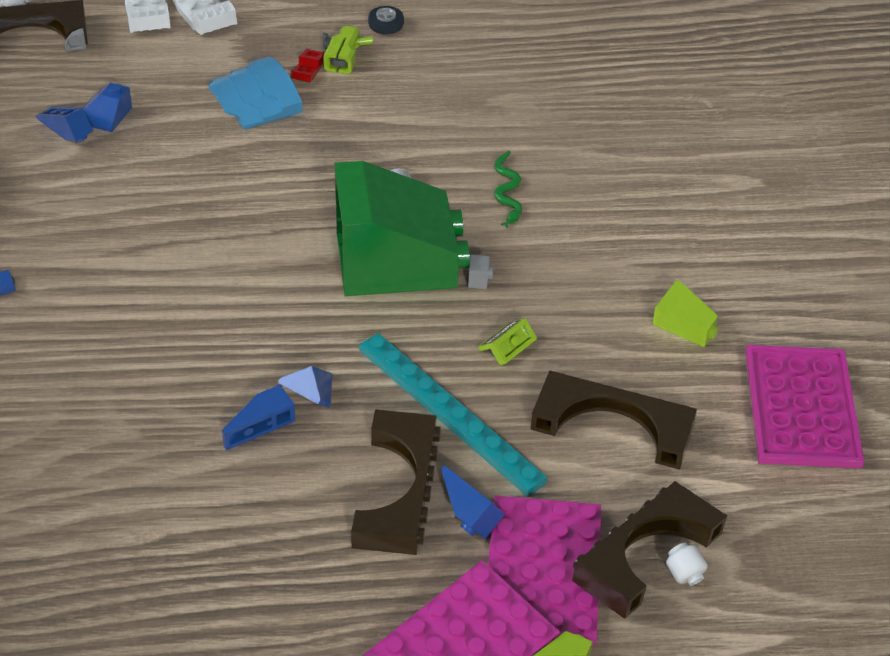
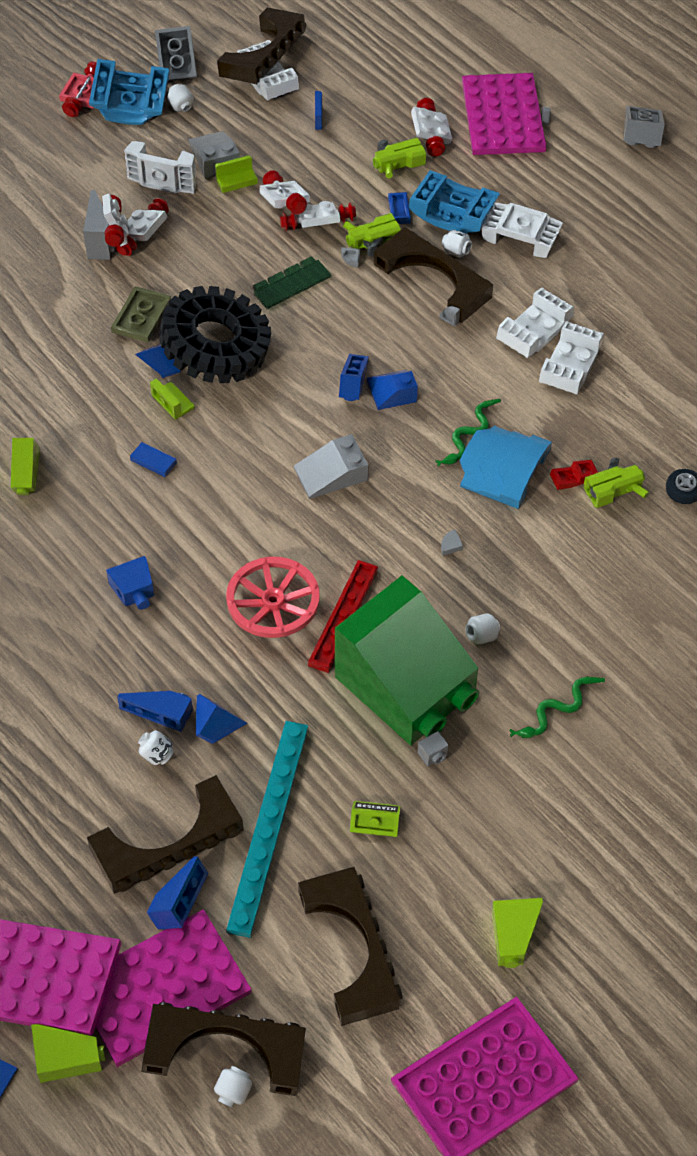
camera: 55 degrees right, 10 degrees up
(107, 365) = (132, 582): none -> blue torso
(141, 181) = (332, 467): none -> light grey slope
(214, 115) = (453, 458): none -> green animal
(230, 286) = (271, 595): none -> coral wheel
(293, 258) = (348, 603): none -> red tile
(294, 160) = (451, 543): none -> light grey tile
(302, 438) = (155, 747): none -> white head

